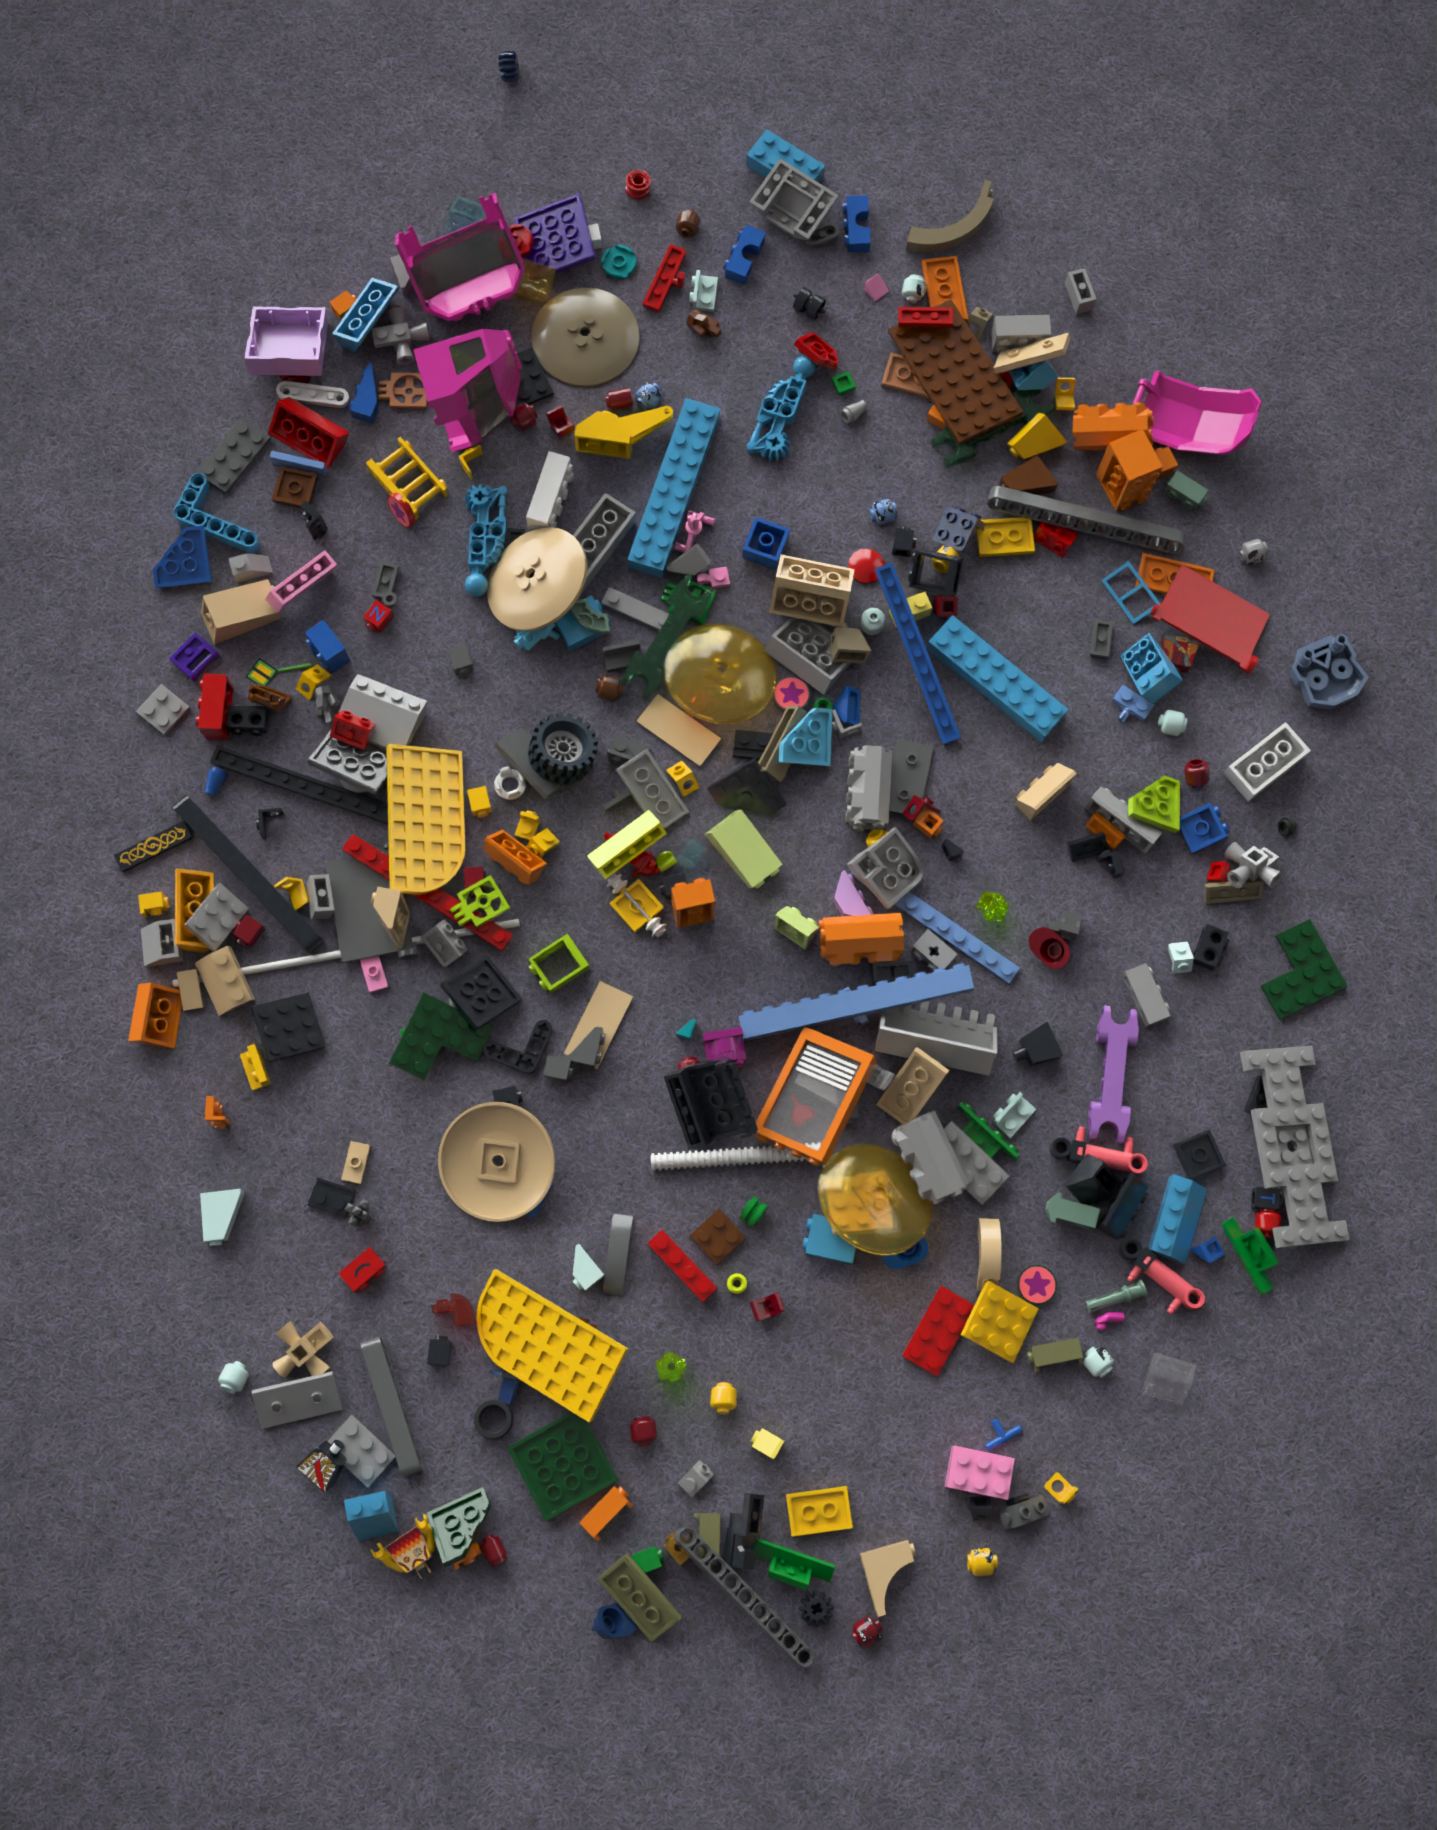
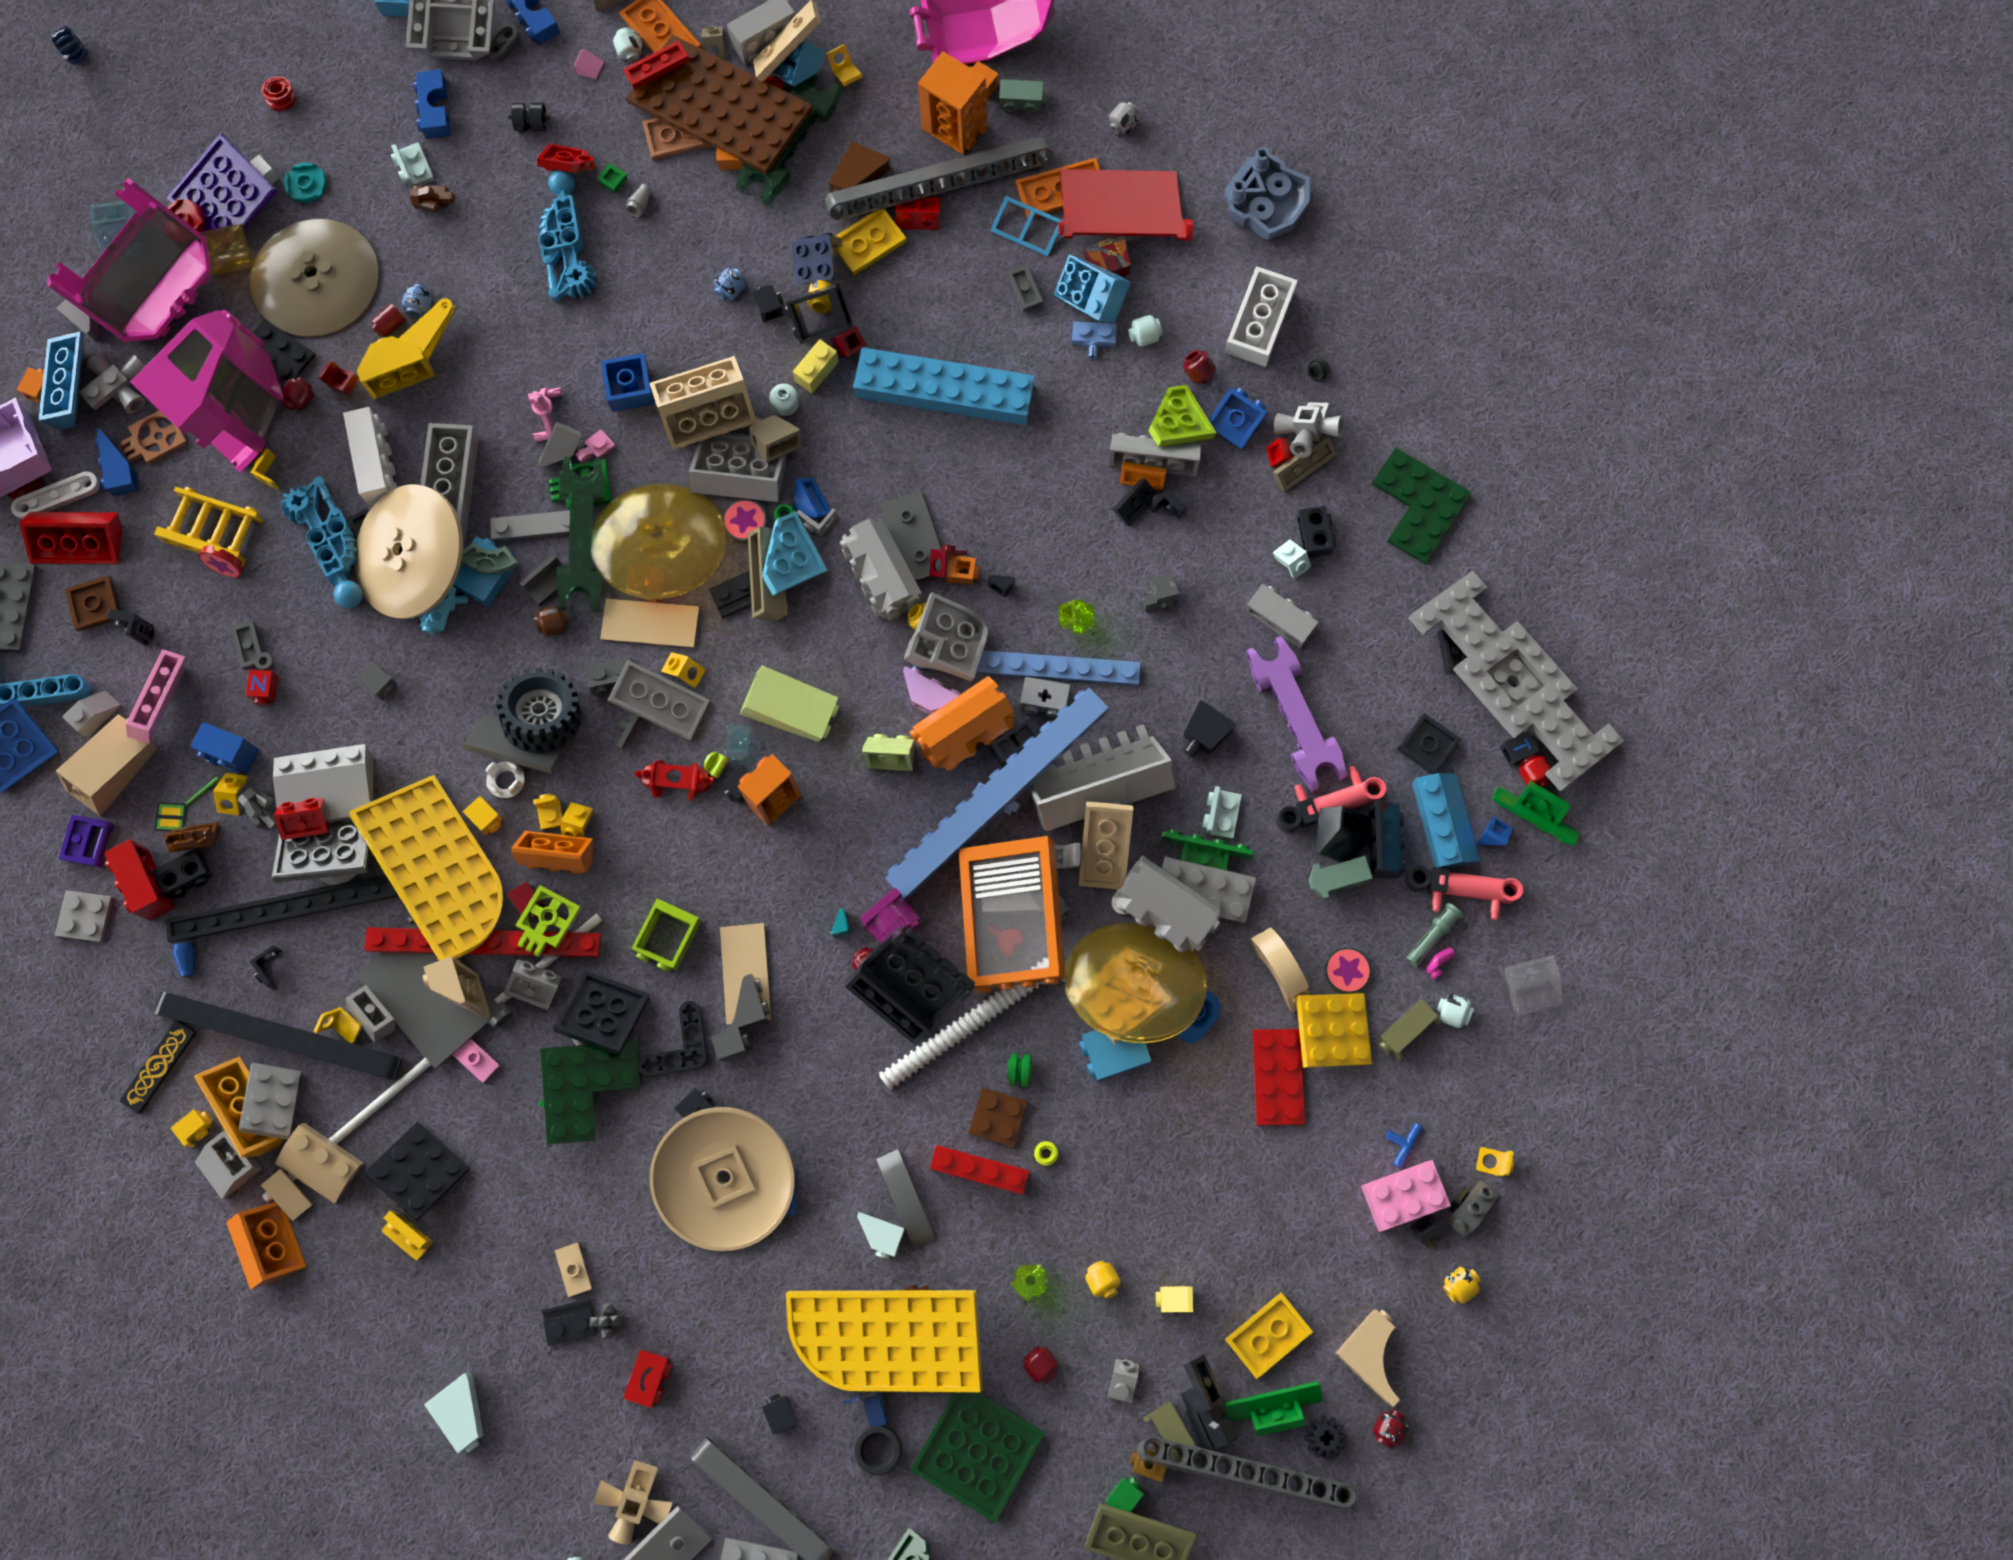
camera: 25 degrees left, 0 degrees up
(214, 1113) = (389, 1309): orange bracket -> none
(248, 931) = (314, 1096): dark red brick -> none
(298, 463) = (81, 575): medium blue tile -> none
(462, 1309) = (776, 1354): clear red brick -> none
(605, 1511) = (1051, 1473): orange brick -> none
(628, 843) = (665, 770): neon yellow brick -> none
(636, 905) = (712, 827): yellow plate -> none
(665, 278) = (364, 172): red plate -> none
(673, 488) = (498, 380): dark azure brick -> none
(687, 223) = (354, 104): reddish brown head -> none
(748, 790) = (757, 642): black plate -> none
(767, 1307) = (1091, 1158): dark red bracket -> none
(864, 565) = (746, 346): red dish -> none
(917, 653) = (849, 405): blue plate -> none
(1035, 438) = (840, 124): yellow slope -> none
(1044, 790) = (1058, 469): tan slope -> none
(1049, 947) = (1158, 624): dark red piece -> none
(1100, 425) = (897, 75): orange brick -> none

